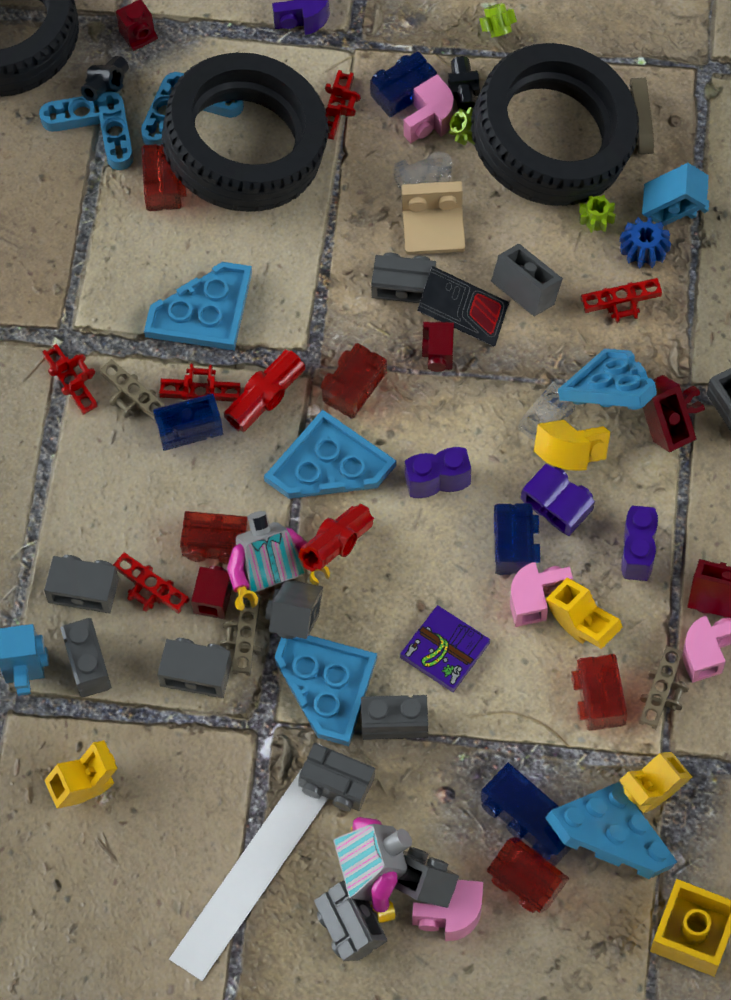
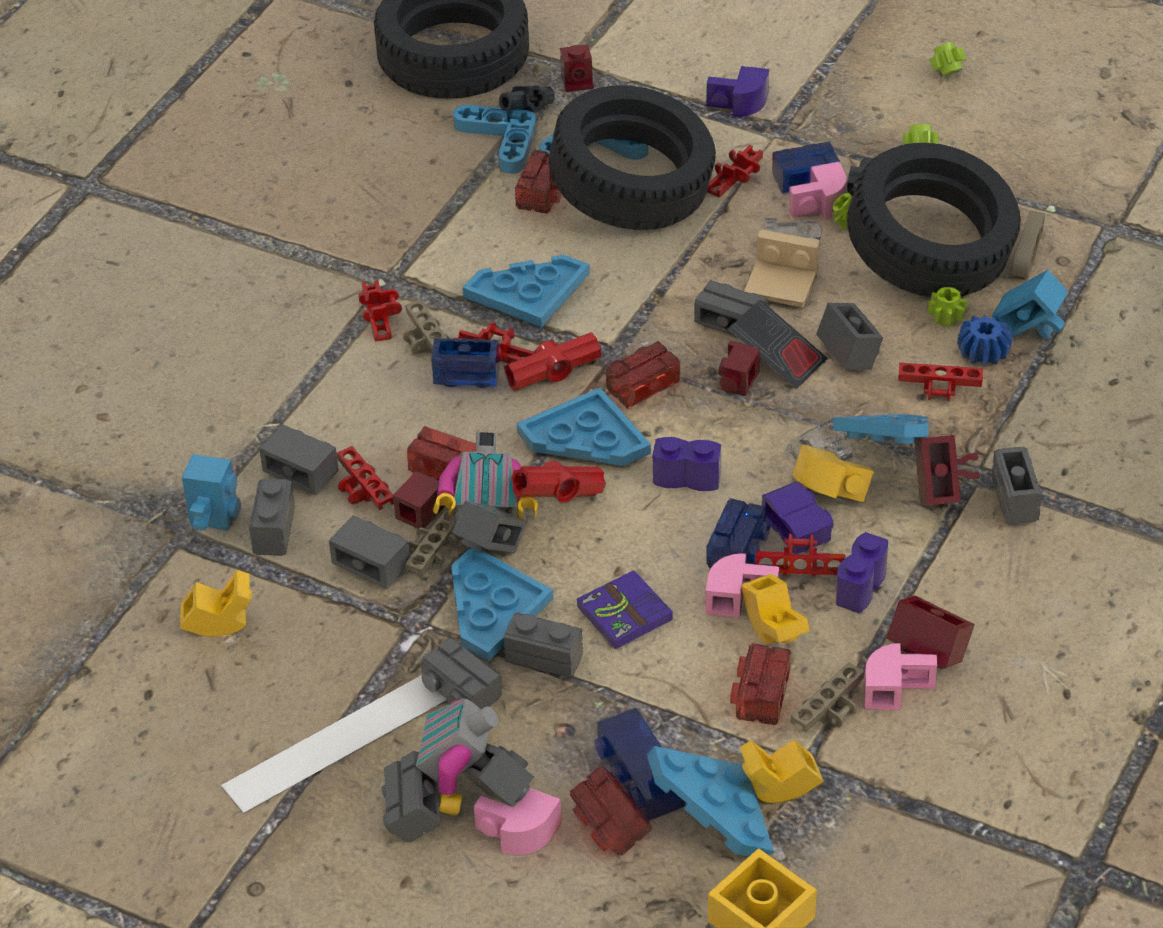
camera: 20 degrees right, 20 degrees down
(562, 554) = (812, 558): none -> red piece

